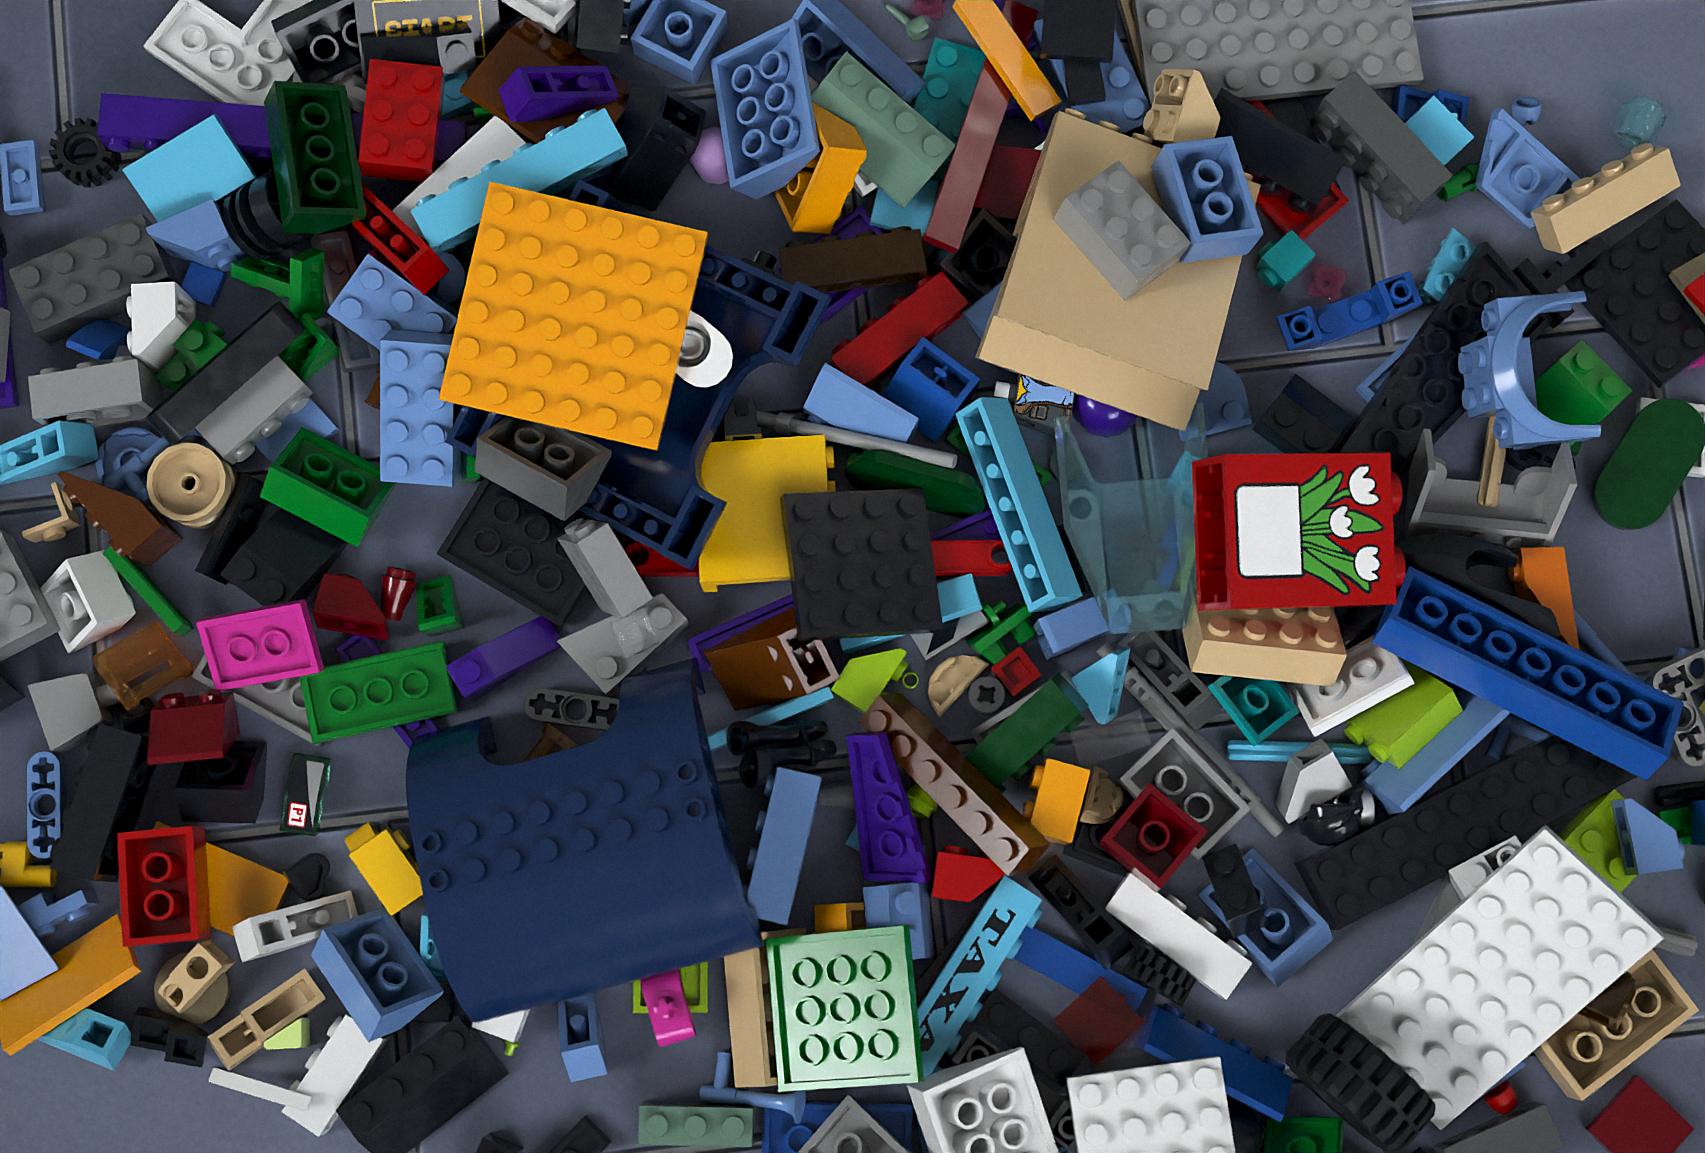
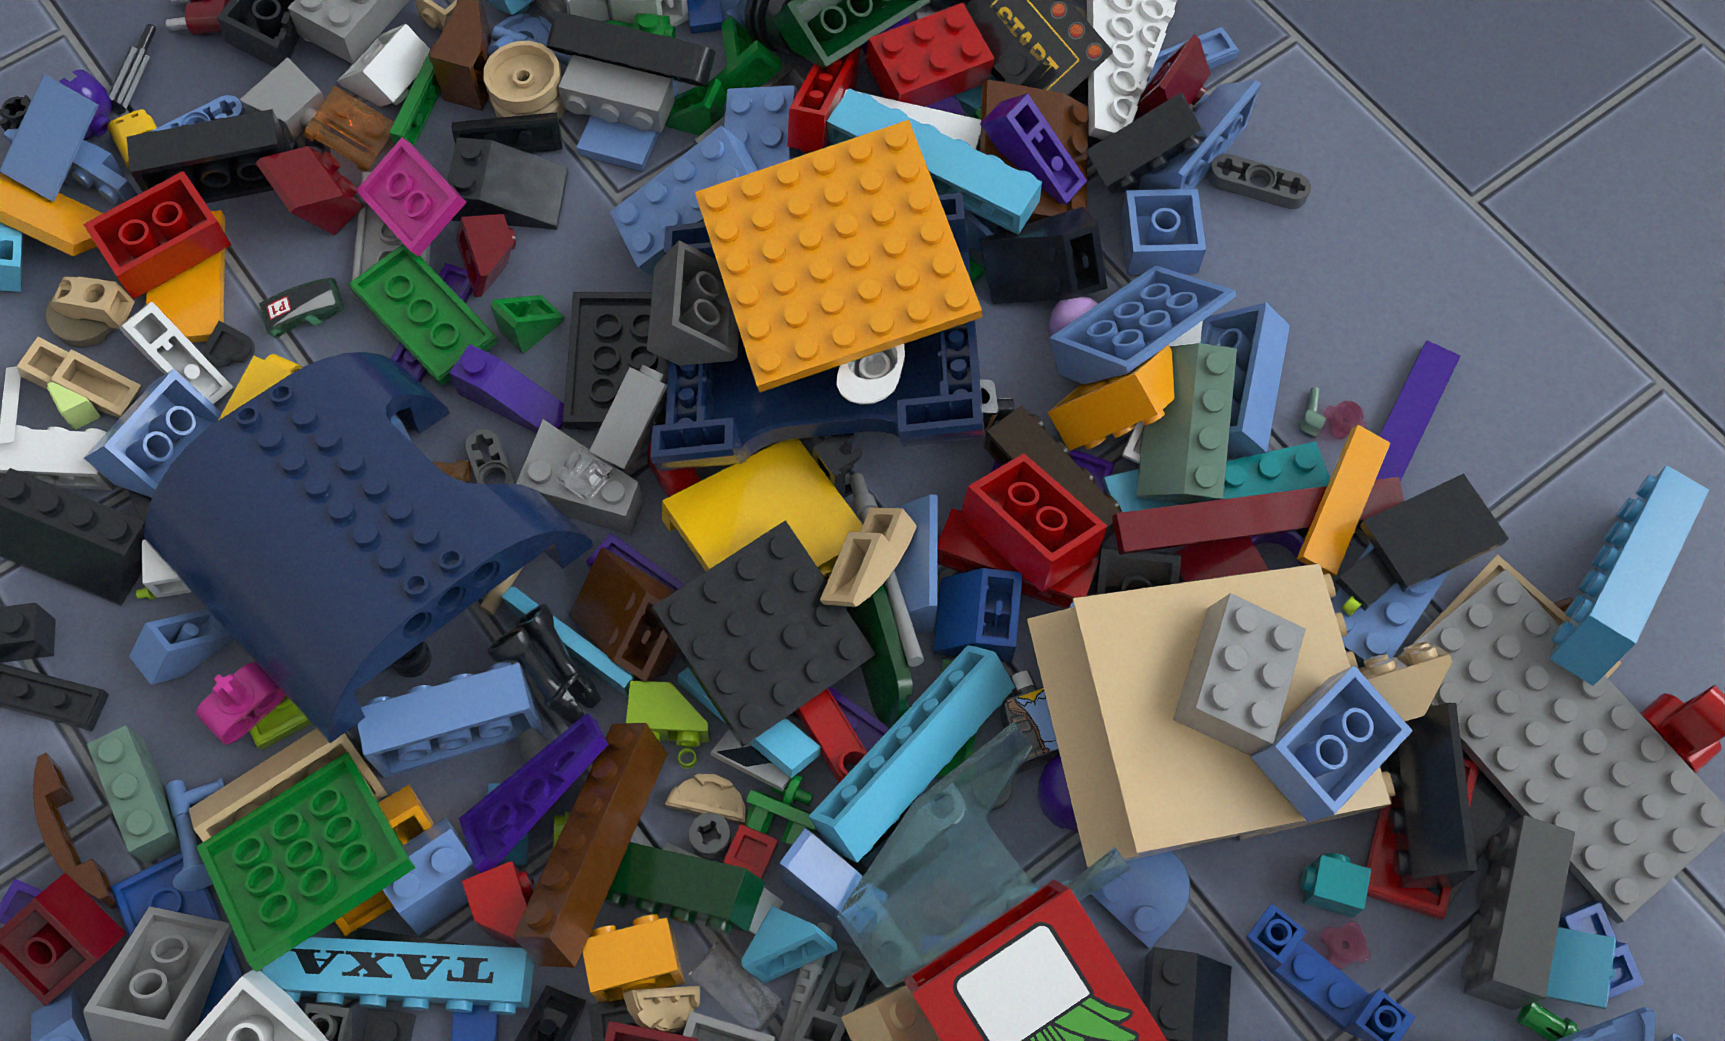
camera: 60 degrees right, 15 degrees down
(164, 1032) = (32, 312): black slope -> none
(224, 787) = (276, 241): black slope -> none
(327, 486) = (582, 179): green slope -> none
(397, 590) = (522, 281): dark red cone -> none
(849, 447) = (869, 556): none -> tan slope
(889, 302) = (1033, 522): none -> red brick
(1097, 108) = (1351, 606): none -> lime piece

